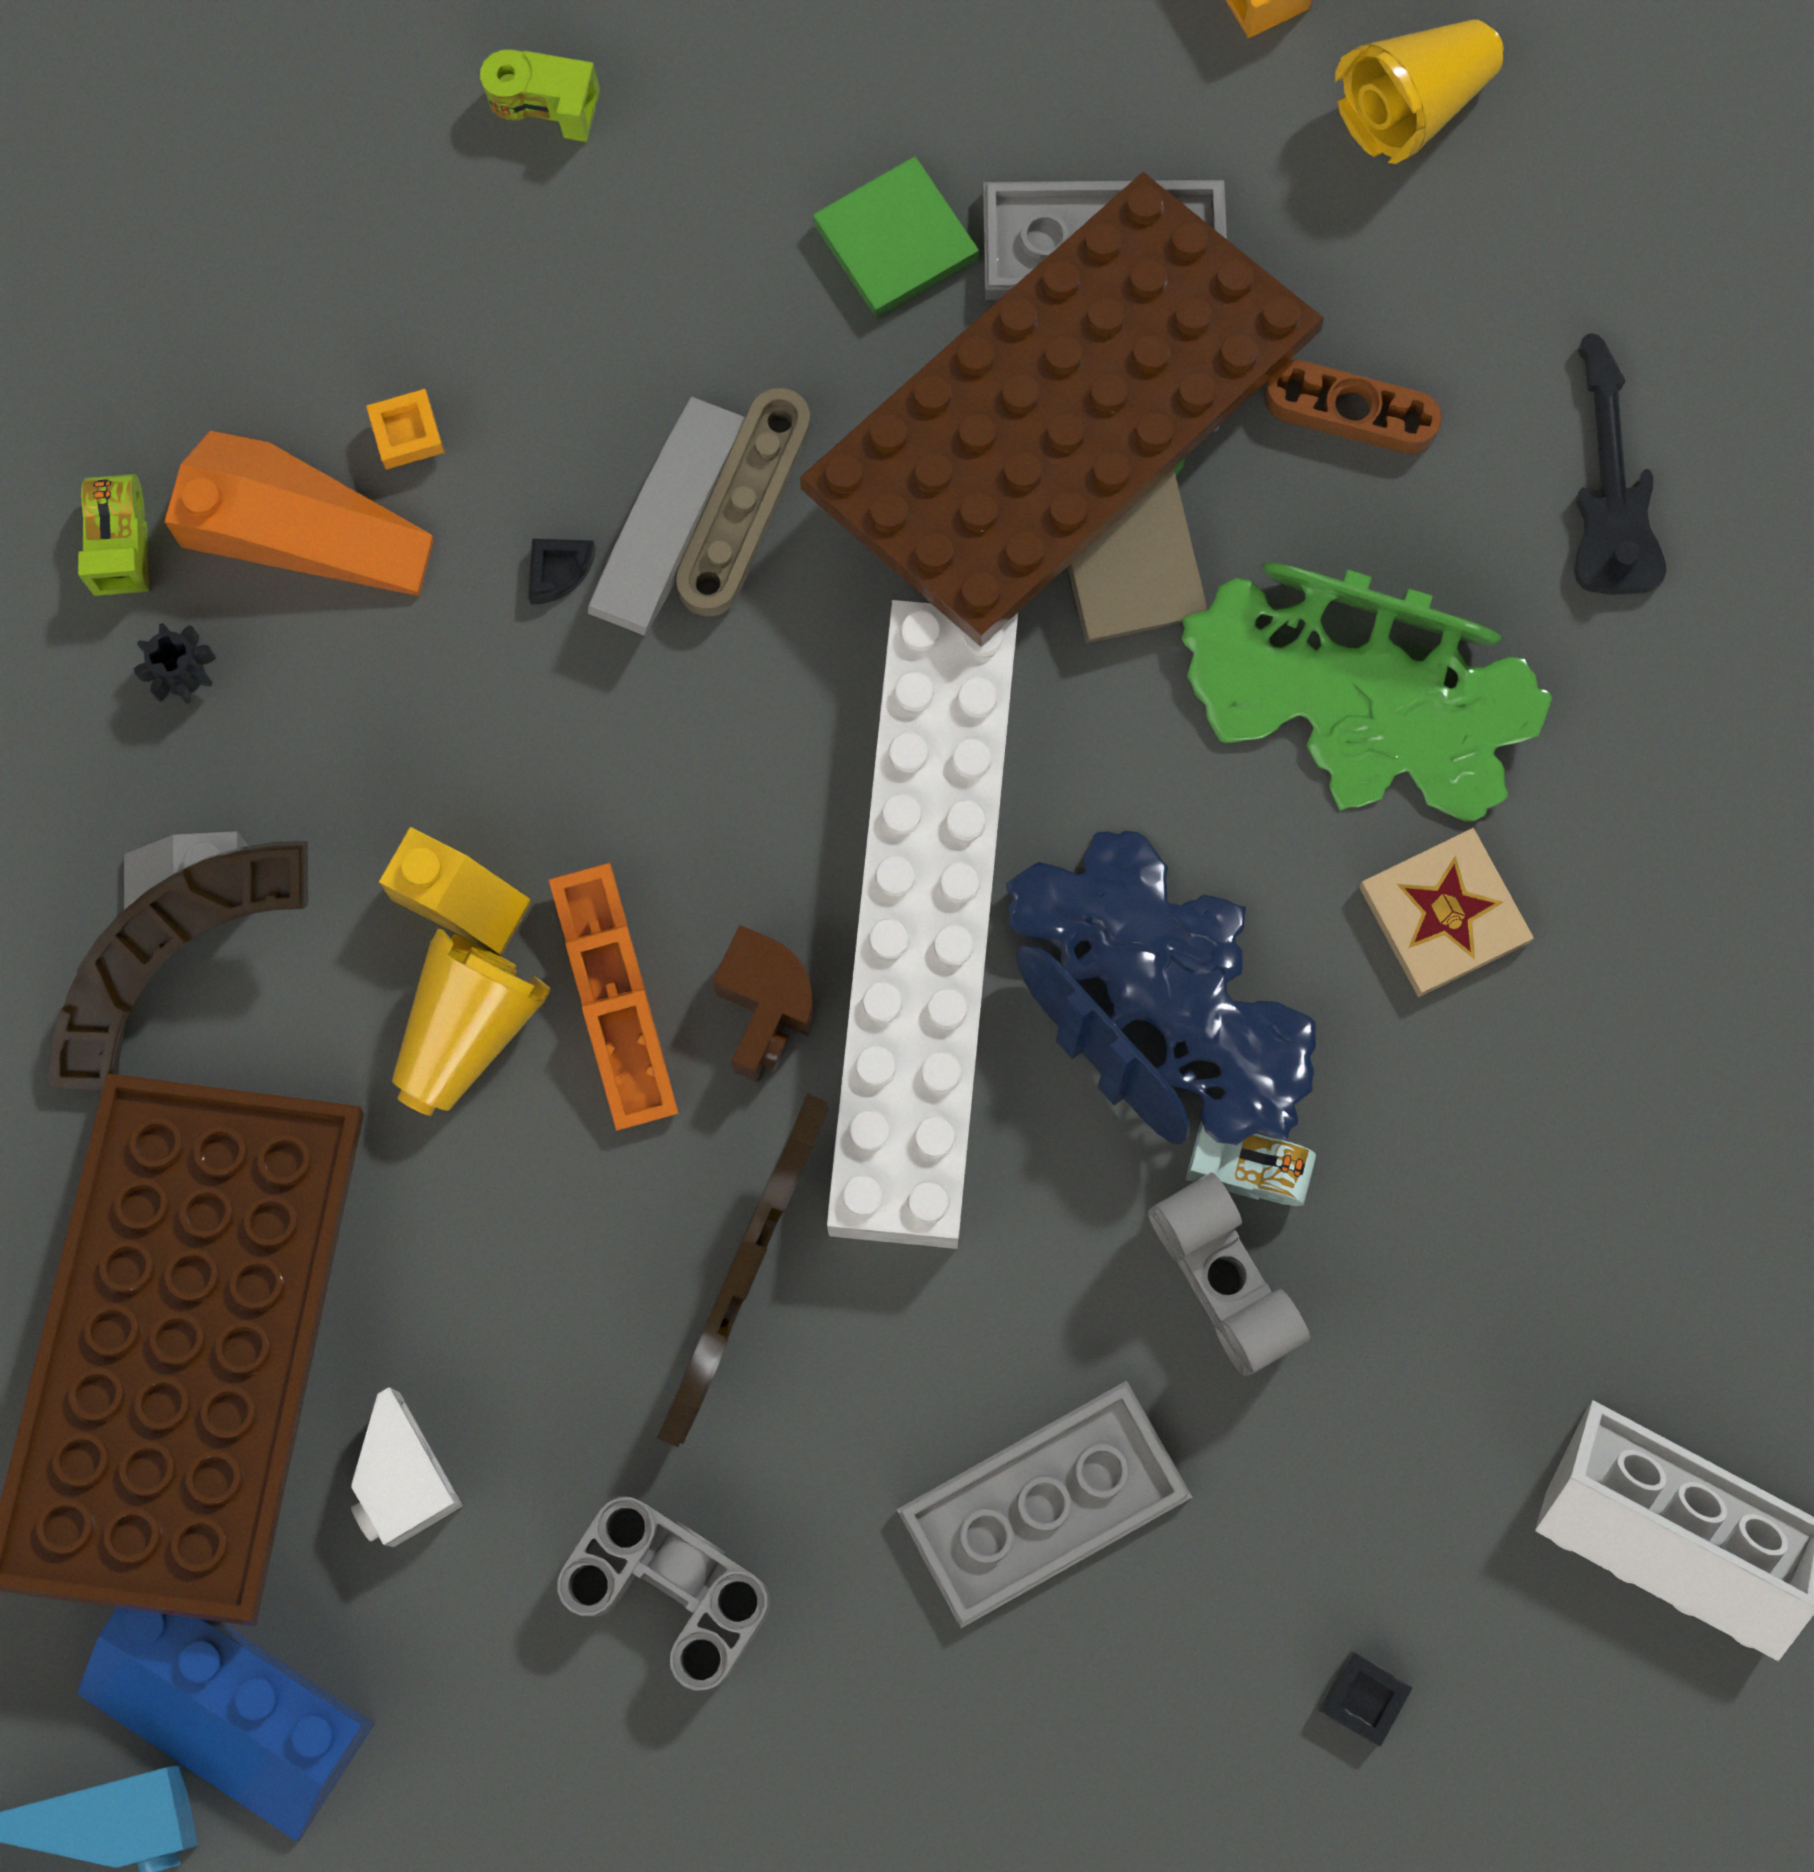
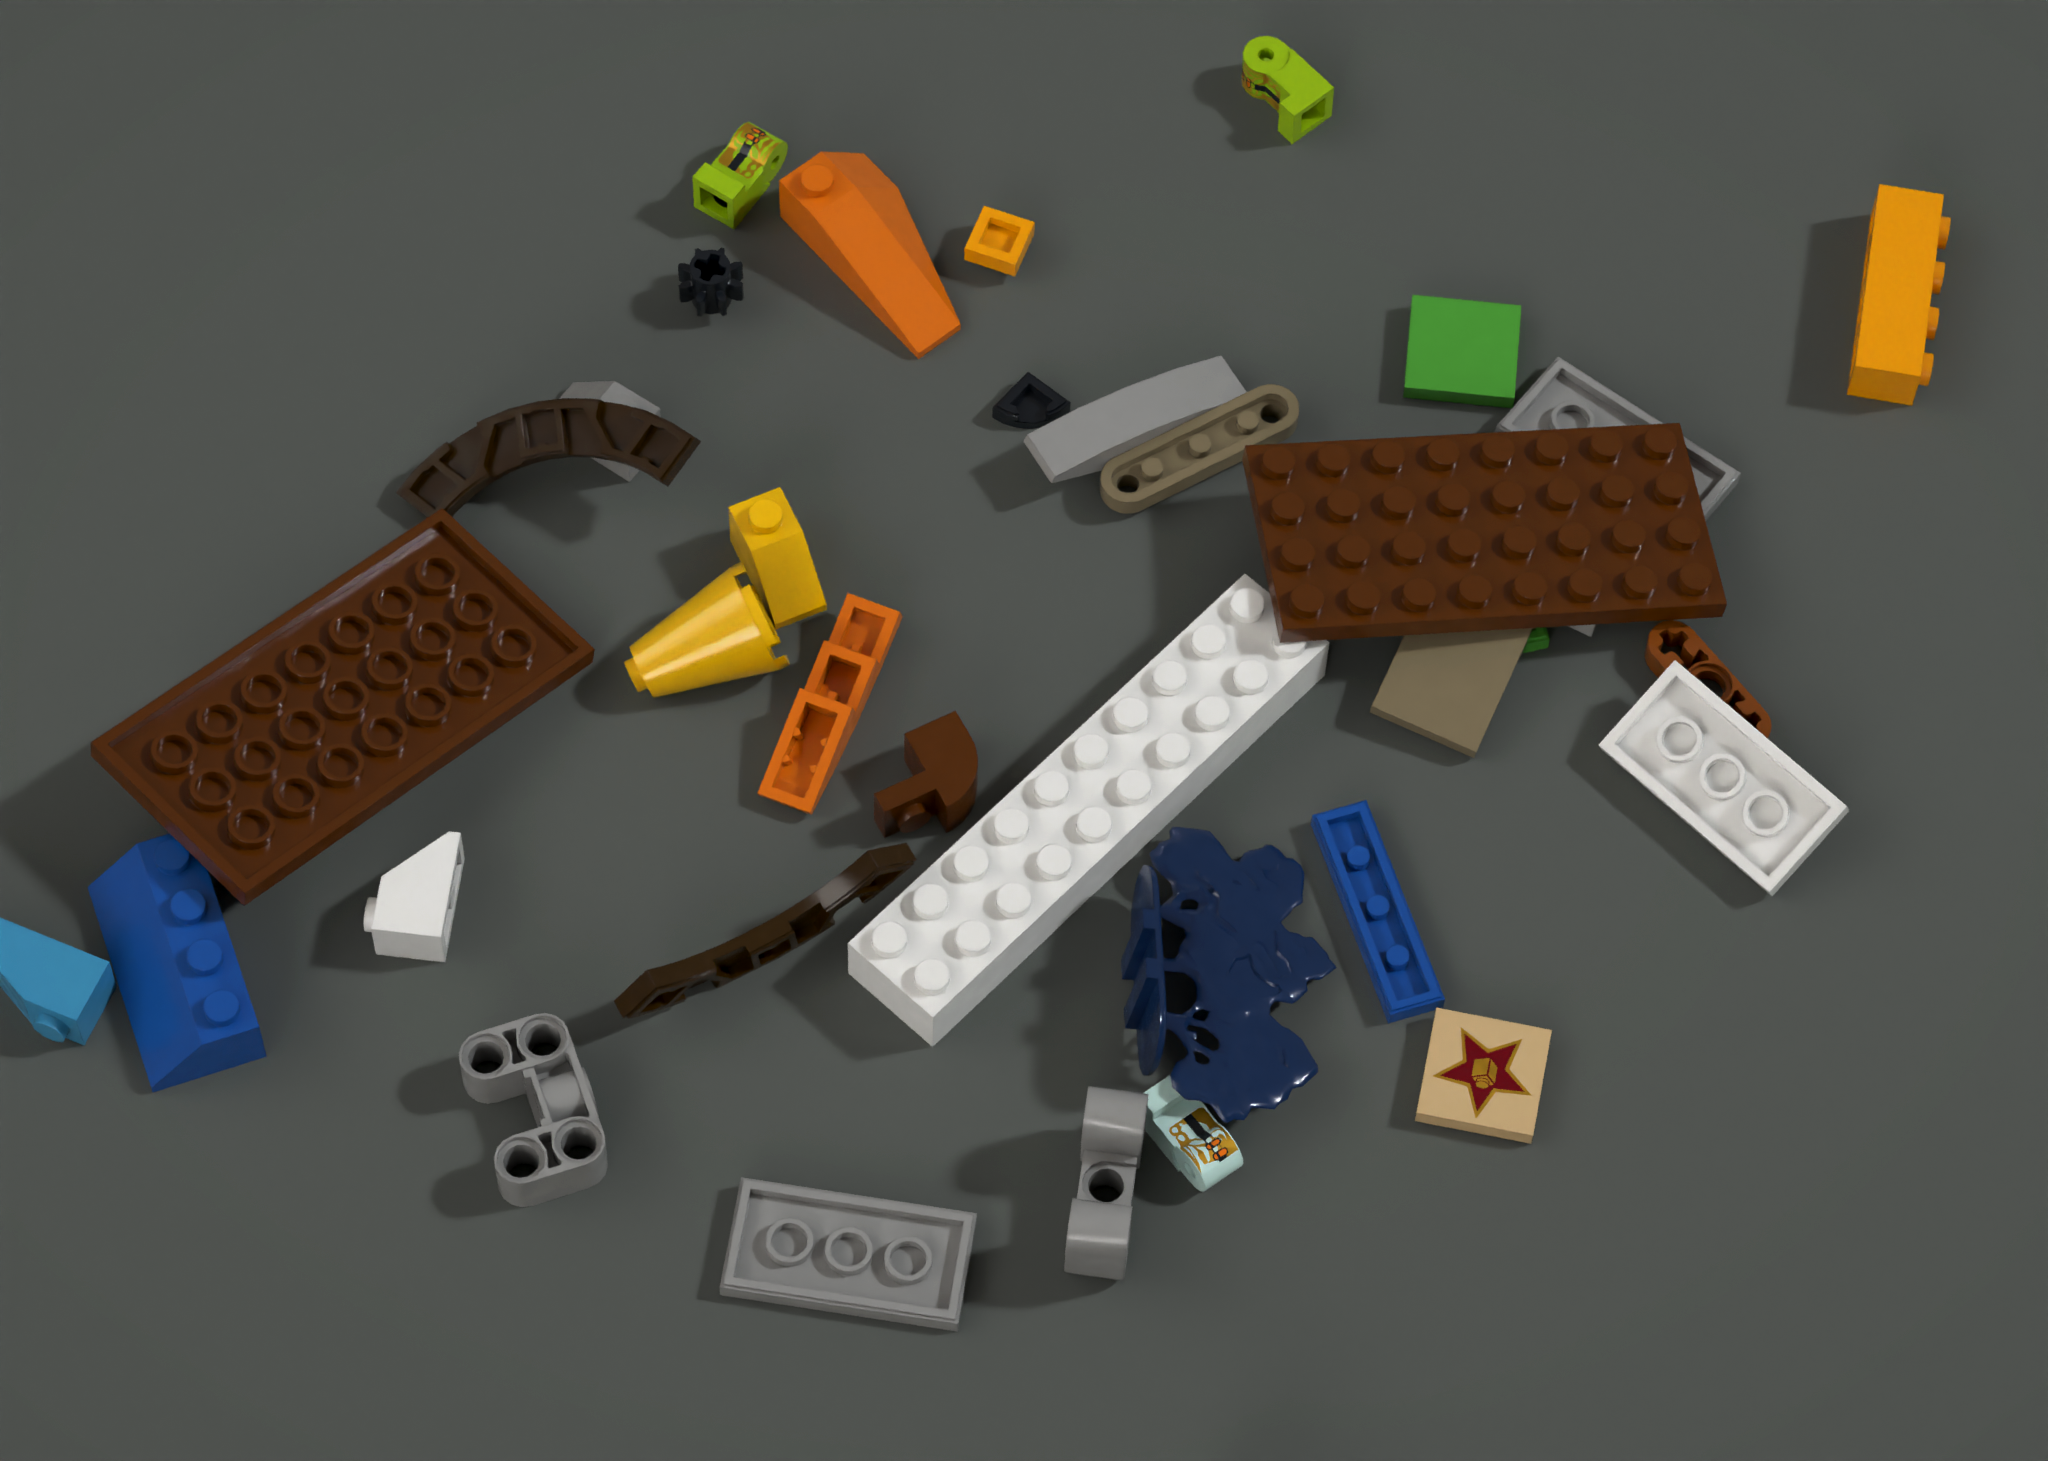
camera: 35 degrees right, 15 degrees down
(1237, 826) = (1377, 911): none -> blue tile
(1366, 704) = (1546, 896): bright green plant -> none
(1414, 84) = (1942, 499): yellow cone -> none
(1438, 482) = (1723, 778): none -> white plate
(1617, 543) = (1833, 919): black piece -> none

